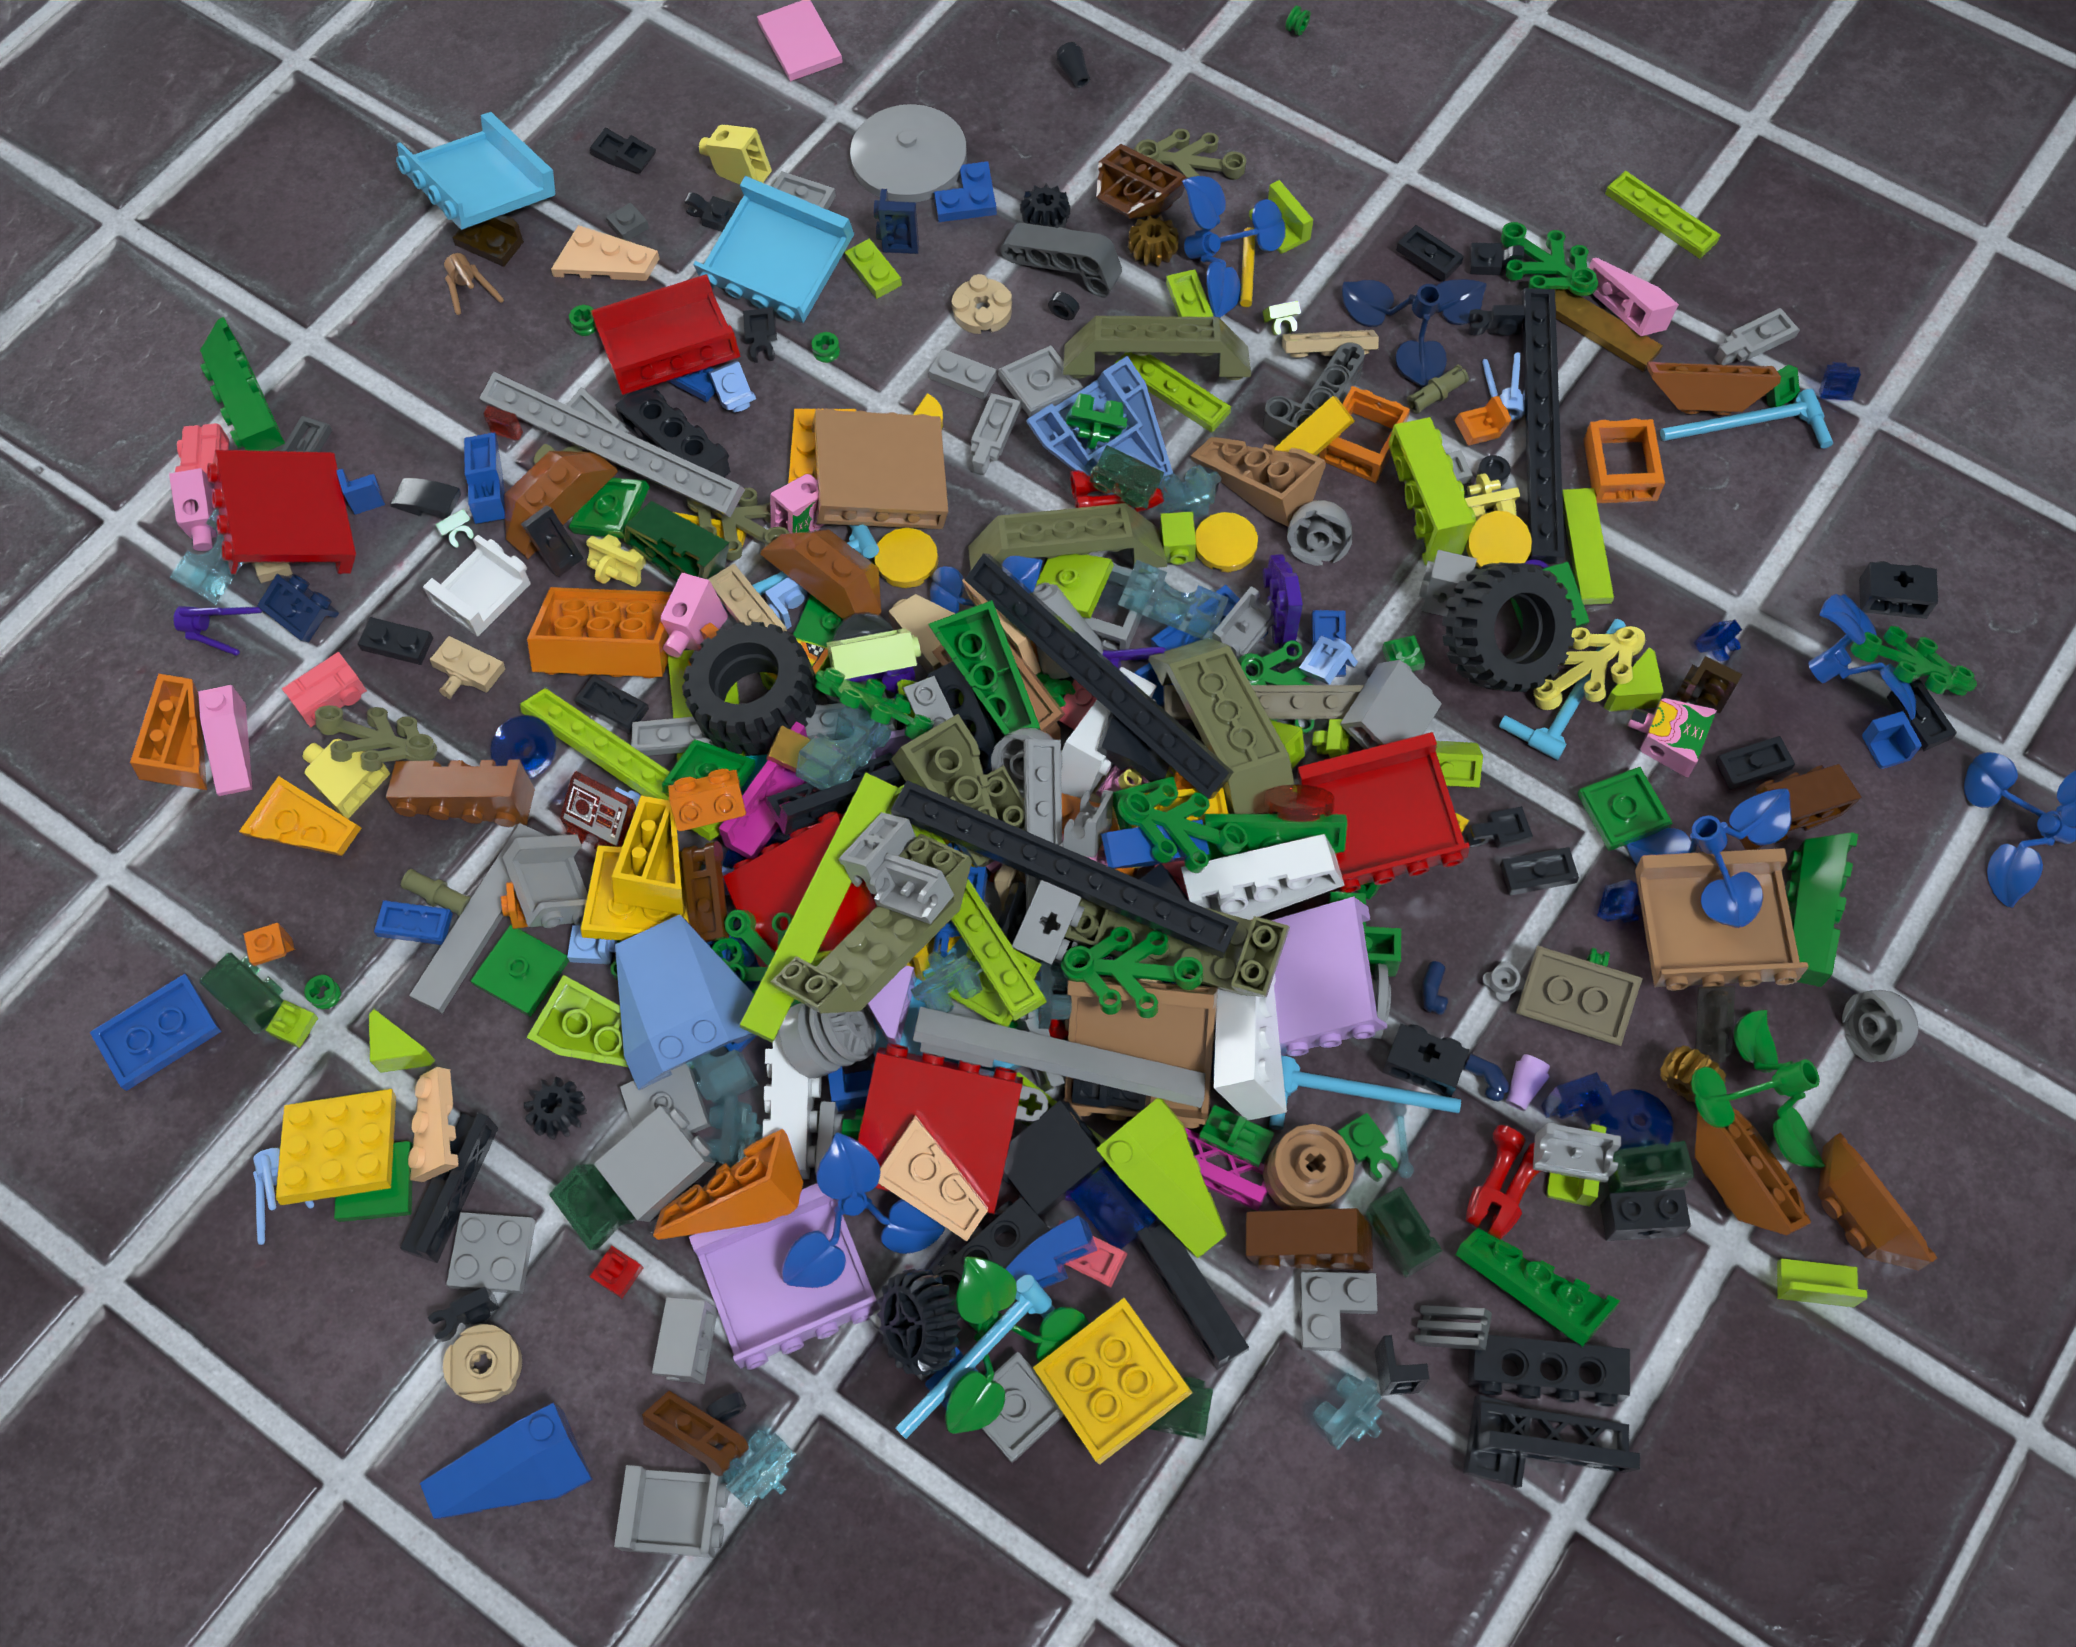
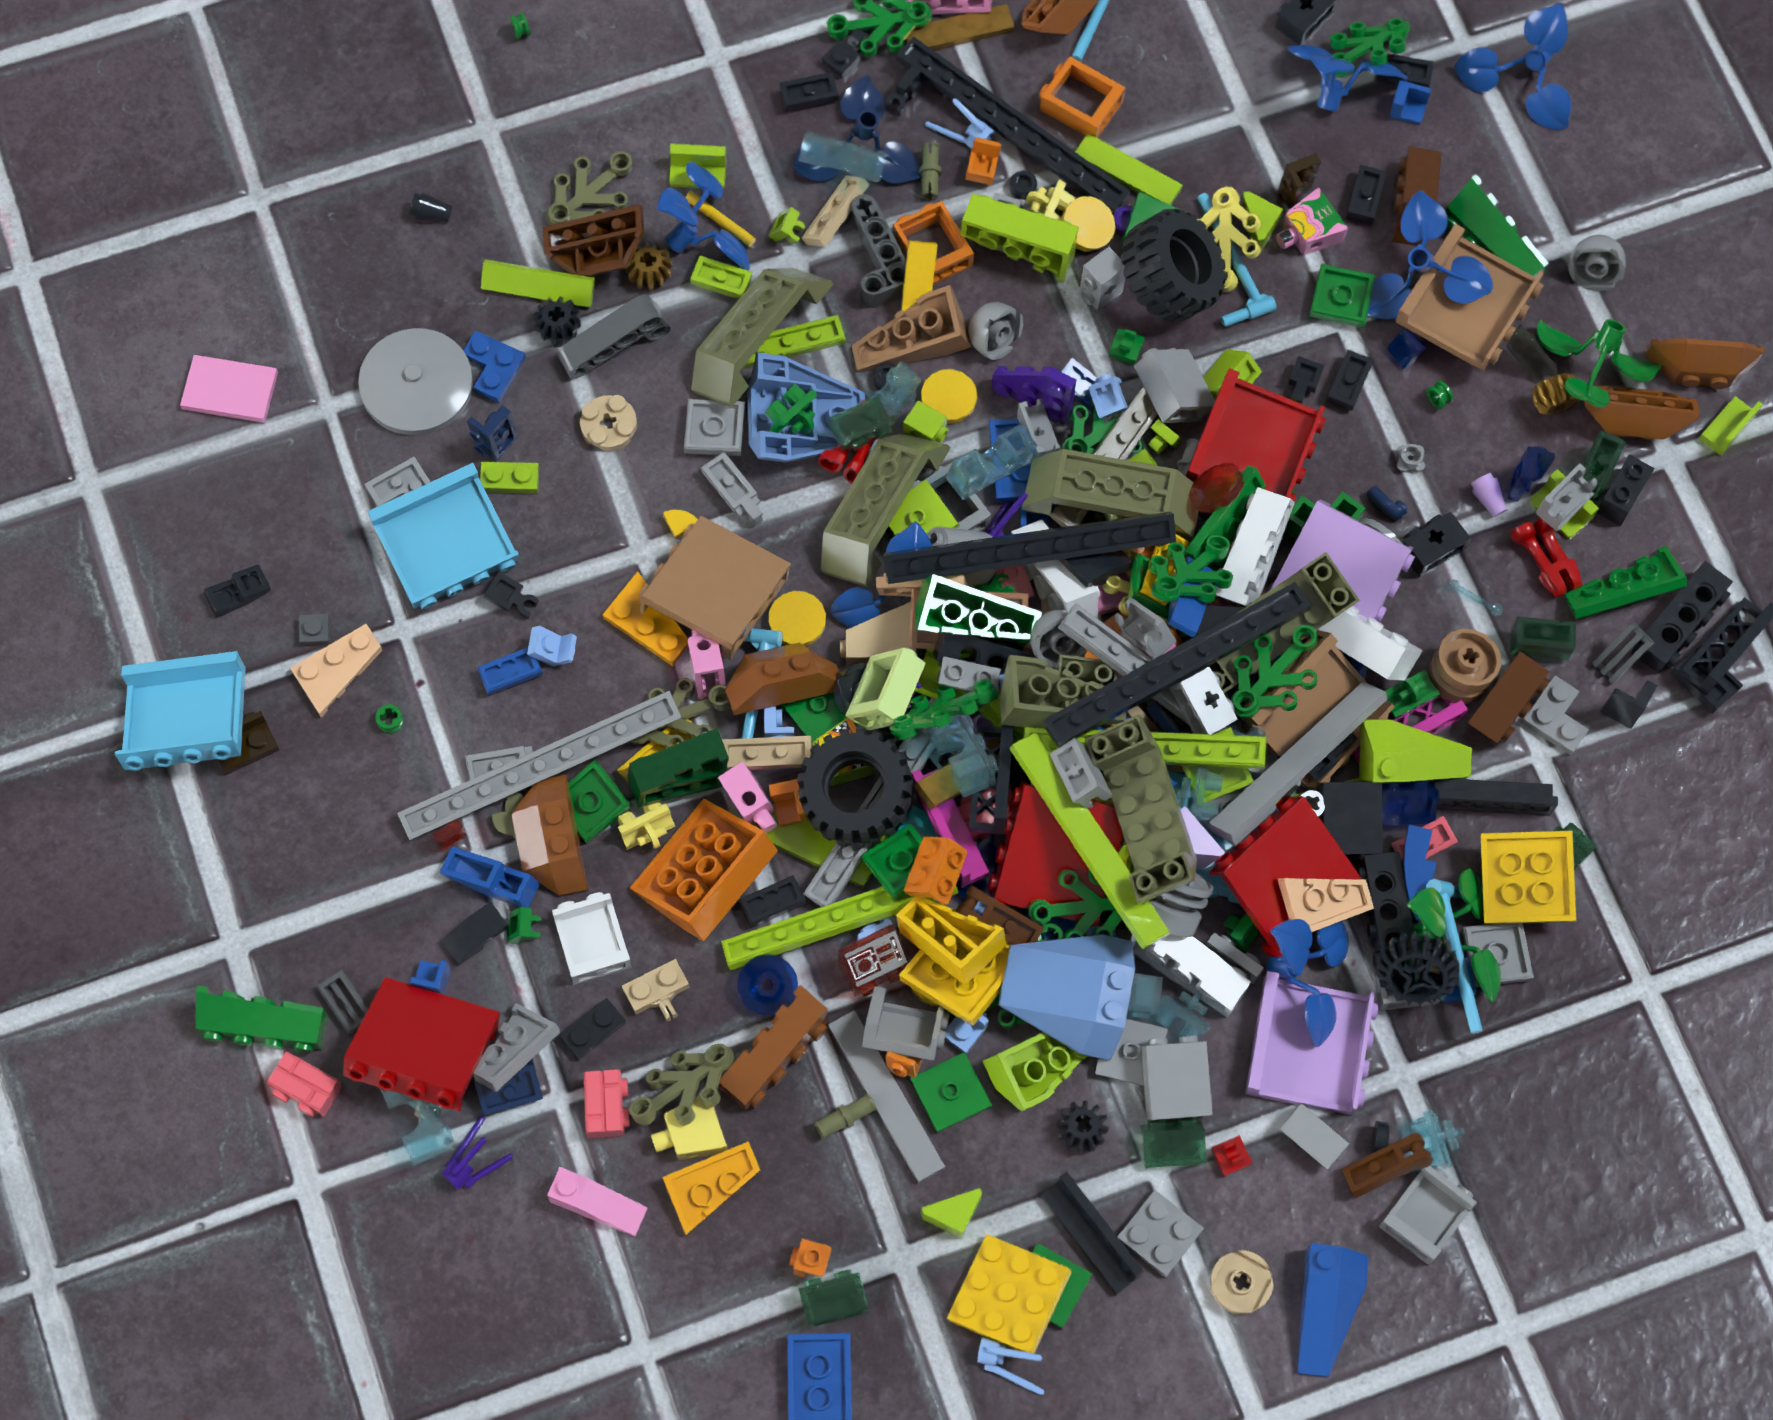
camera: 60 degrees left, 5 degrees up
(171, 736) = (566, 1238): orange wedge -> none
(194, 506) = (348, 1105): bright pink torso -> none
(292, 1024) = (879, 1280): lime tile -> none
(332, 994) = (876, 1239): green bush -> none
(334, 586) = (517, 1044): none -> light grey wing
(413, 922) = (858, 1146): blue plate -> none
(430, 1126) = (1044, 1220): light nougat wing -> none
(462, 273) = (266, 783): medium nougat plant -> none
(469, 1309) = (1198, 1265): black plate -> none
(552, 541) = (600, 858): black plate -> none
(657, 423) = (547, 707): black brick -> none
(665, 334) = (465, 665): red panel -> none
(713, 213) = (361, 557): black plate -> none
(736, 153) = (322, 507): light yellow torso -> none
(746, 1194) = (1243, 1028): orange wedge -> none
(833, 349) = (560, 566): green bush -> none
(850, 1089) = (1209, 920): blue panel -> none
(911, 888) = (1131, 769): light grey hinge -> none
(962, 374) = (661, 477): light grey plate -> none
(1063, 305) = (659, 367): black tile -> none
(1068, 175) = (537, 282): none -> lime tile
(1295, 1078) = (1434, 588): medium azure bar -> none
(1355, 1416) = (1626, 740): clear light blue hips -> none
(1366, 1144) = (1463, 617): green plate -> none
(1389, 318) = (843, 155): none -> clear light blue arch
(1492, 1074) = (1470, 511): dark blue arm -> none
(1579, 995) = (1454, 420): dark tan tile -> none
(1631, 1103) = (1565, 460): clear blue dish -> none
(1718, 637) = (1261, 145): clear blue tile -> none

